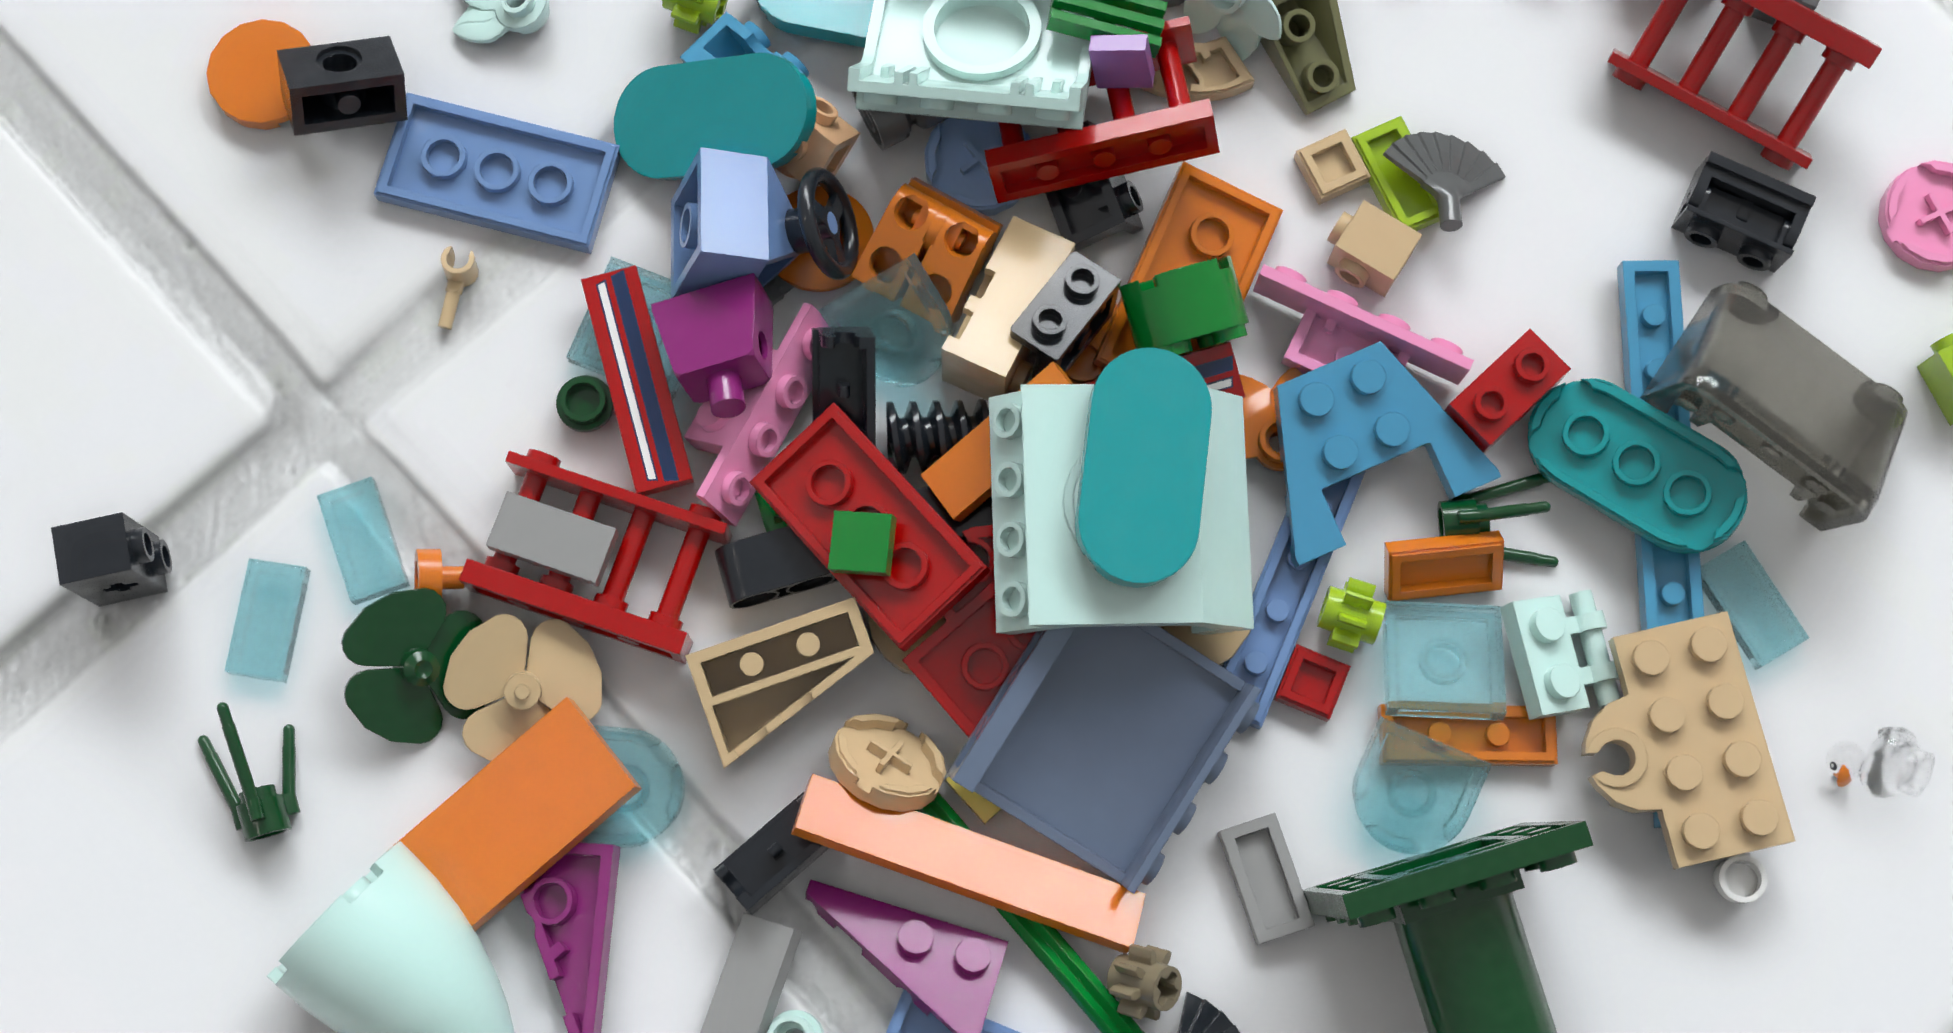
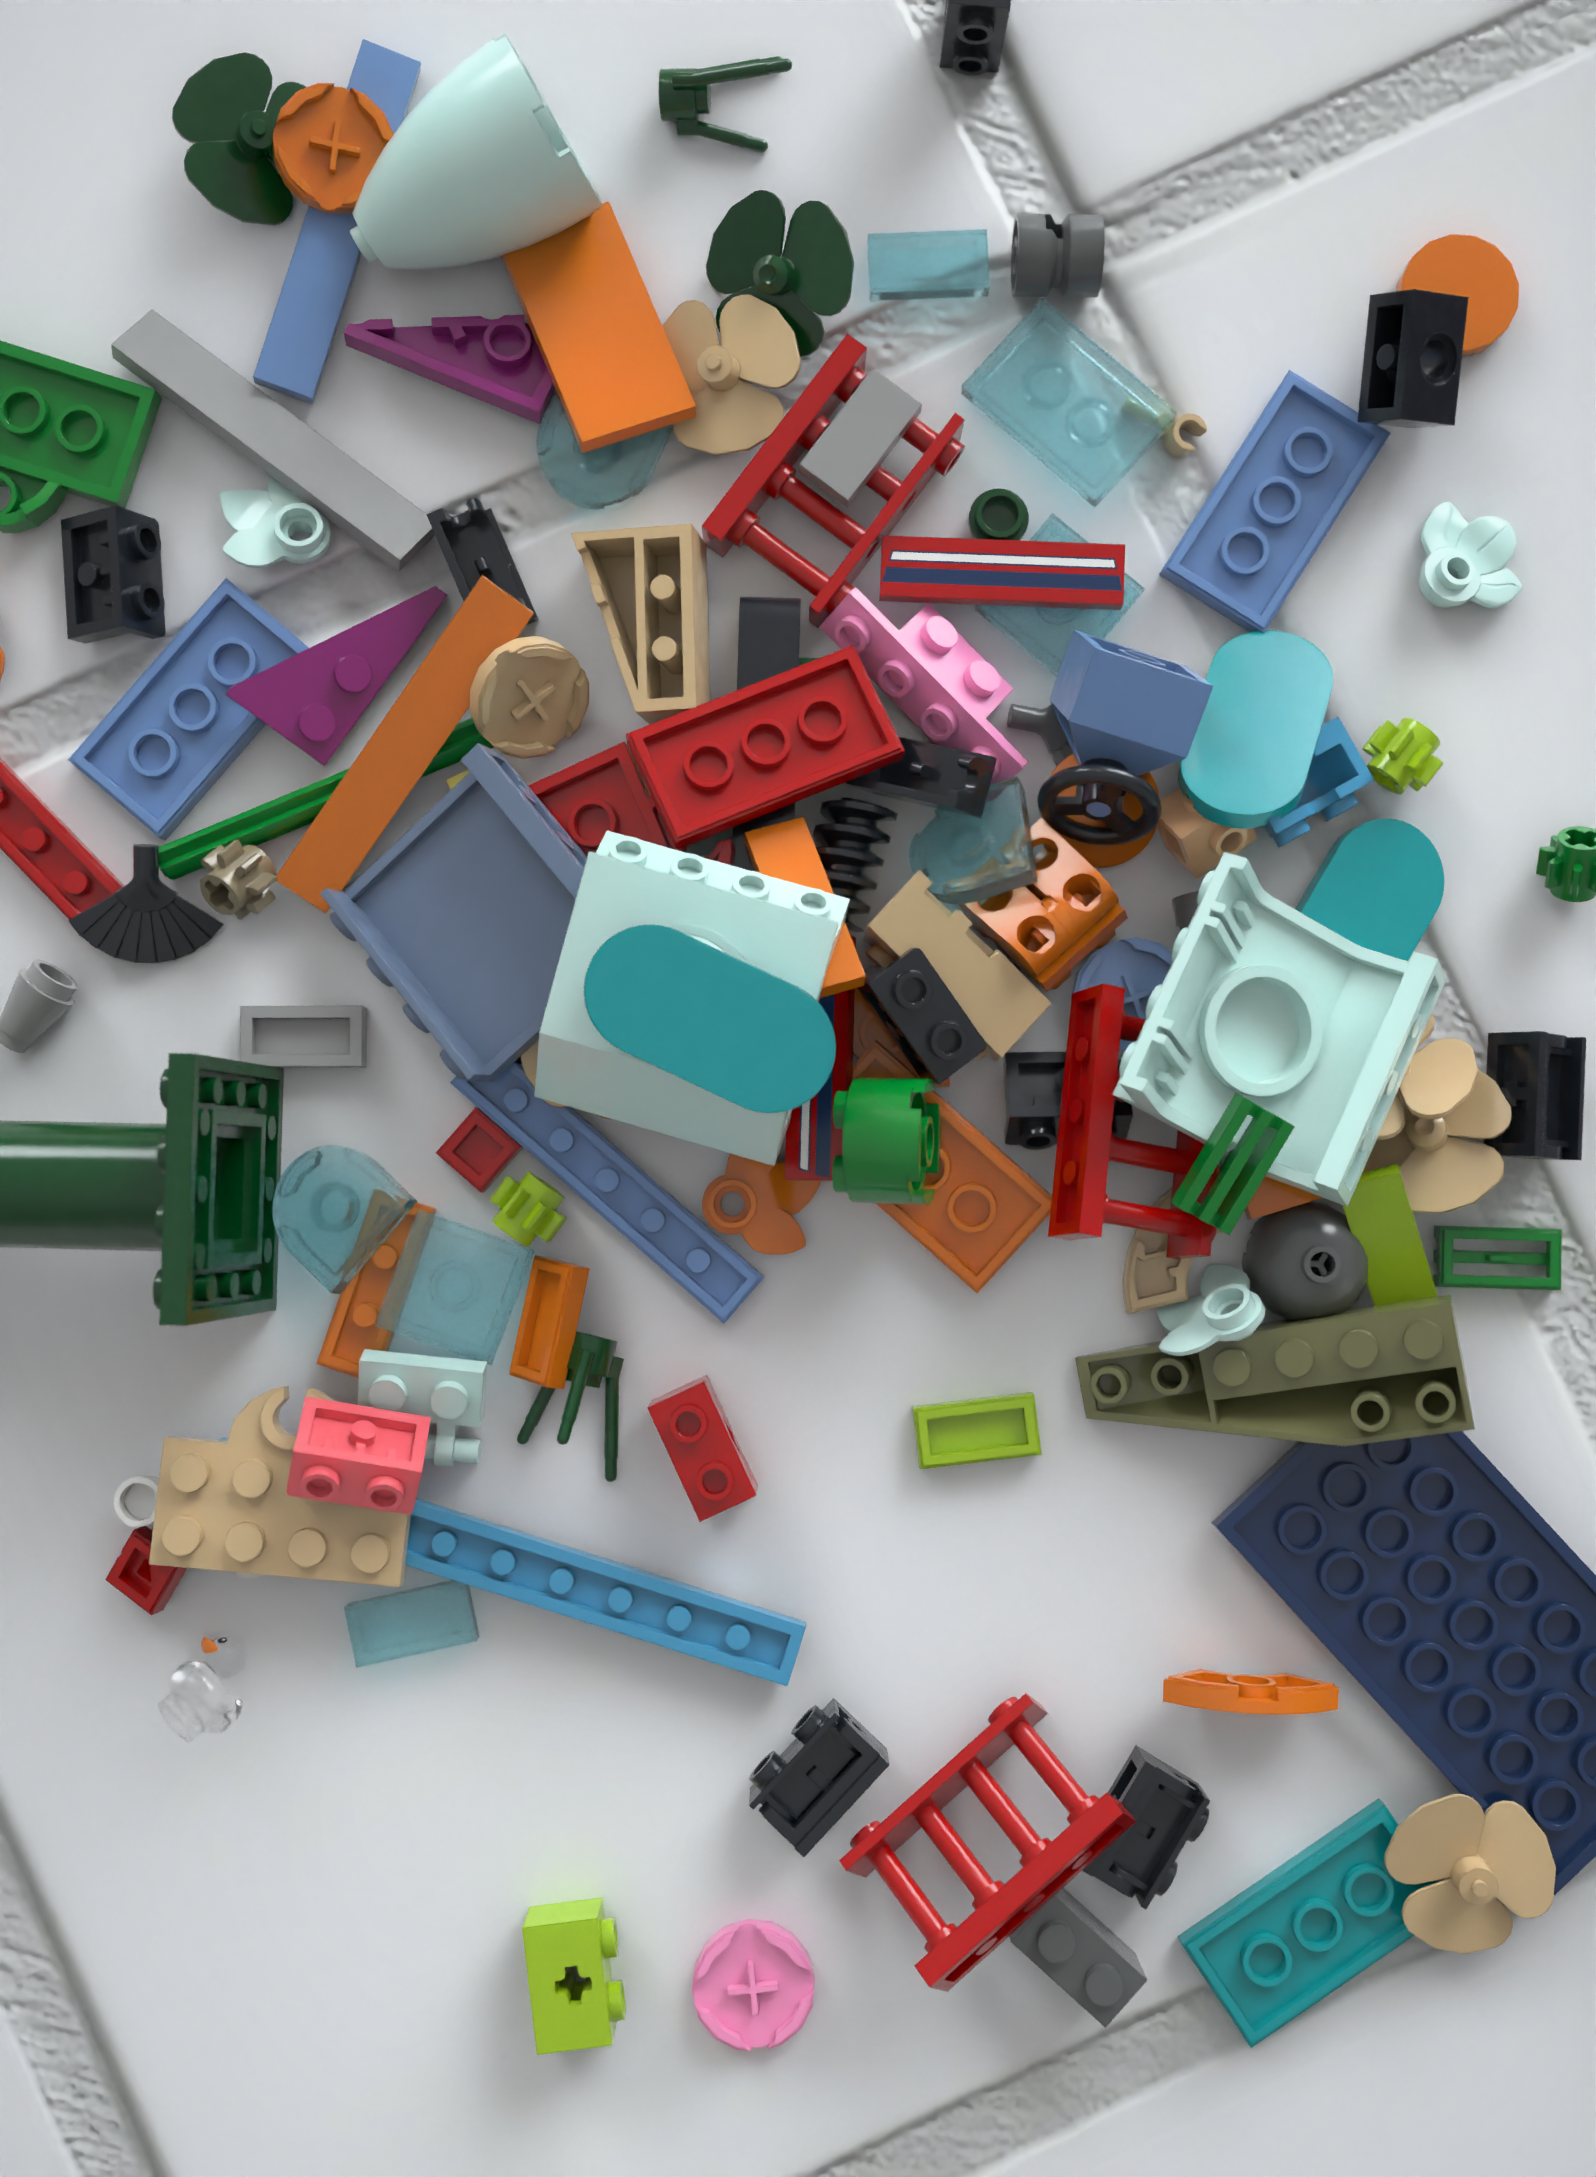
camera: 105 degrees right, 10 degrees up
(267, 620) = (876, 152): clear light blue tile -> none
(326, 414) = (1057, 255): none -> dark grey wheel
(432, 575) = (866, 315): orange tile -> none
(459, 373) = (1068, 402): none -> clear light blue tile
(719, 341) = (1006, 656): magenta torso -> none
(862, 543) = (743, 727): green tile -> none
(1121, 61) = (1177, 1163): medium lavender tile -> none
(1332, 166) = (1010, 1363): tan tile -> none
(1338, 327) = (803, 1307): bright pink bracket -> none
(1354, 420) = (723, 1281): dark azure wing -> none
(1371, 248) = (904, 1367): tan brick -> none
(1444, 169) = (966, 1478): dark grey hand -> none
(1627, 678) = (358, 1456): none -> coral bracket
(1637, 465) = (581, 1556): teal tile -> none
(1785, 402) = (595, 1732): clear smoke windscreen -> none
(1804, 860) = (138, 1580): none -> red tile

